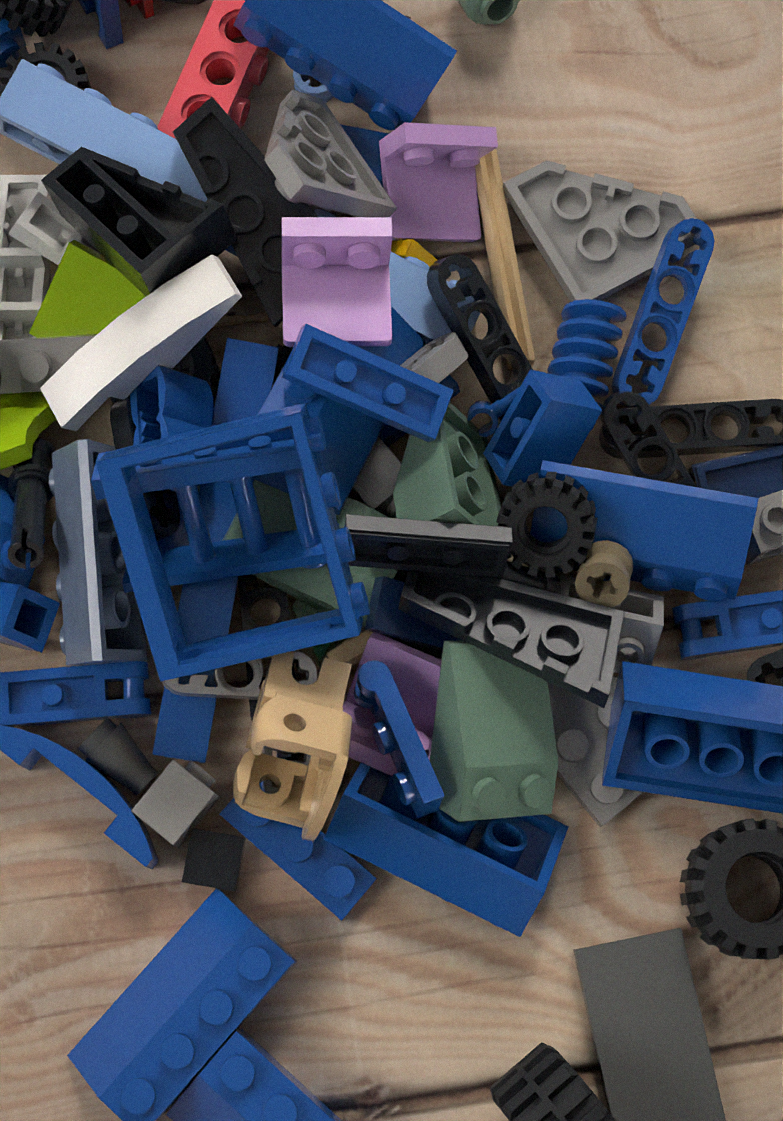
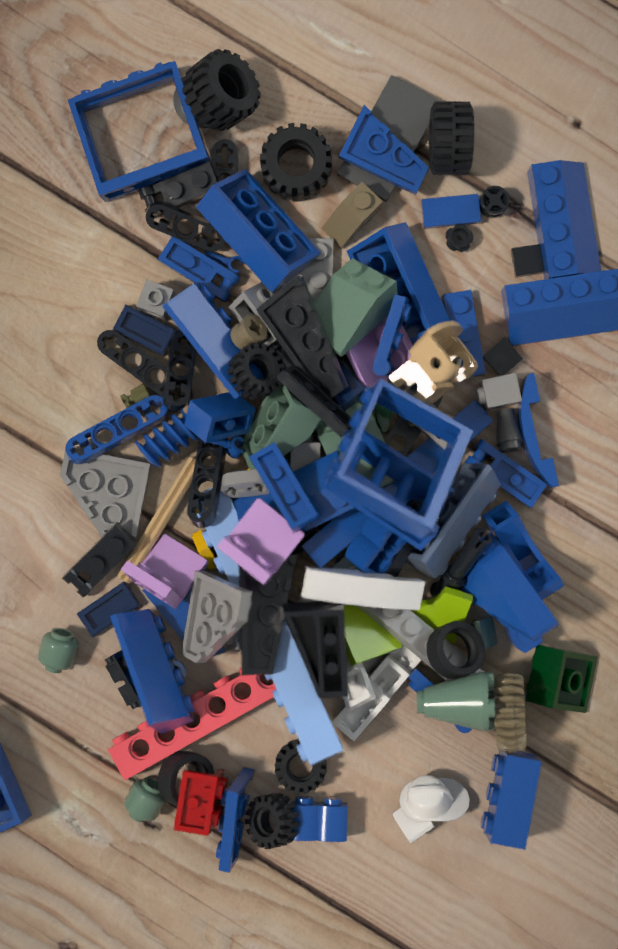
camera: 135 degrees left, 10 degrees up
(293, 1038) = (527, 260): none -> black tile
(416, 1094) = (497, 197): none -> black wheel
(437, 981) = (459, 230): none -> black plate
(468, 1016) = (450, 211): none -> blue tile
(469, 85) = (97, 614): none -> dark blue tile
(534, 136) = (100, 558): none -> black plate
(606, 883) = (352, 215): none -> dark tan slope
(642, 1010) = (382, 154): none -> blue wing
(677, 384) = (137, 394): none -> olive piece
(725, 665) = (224, 260): none -> blue hand

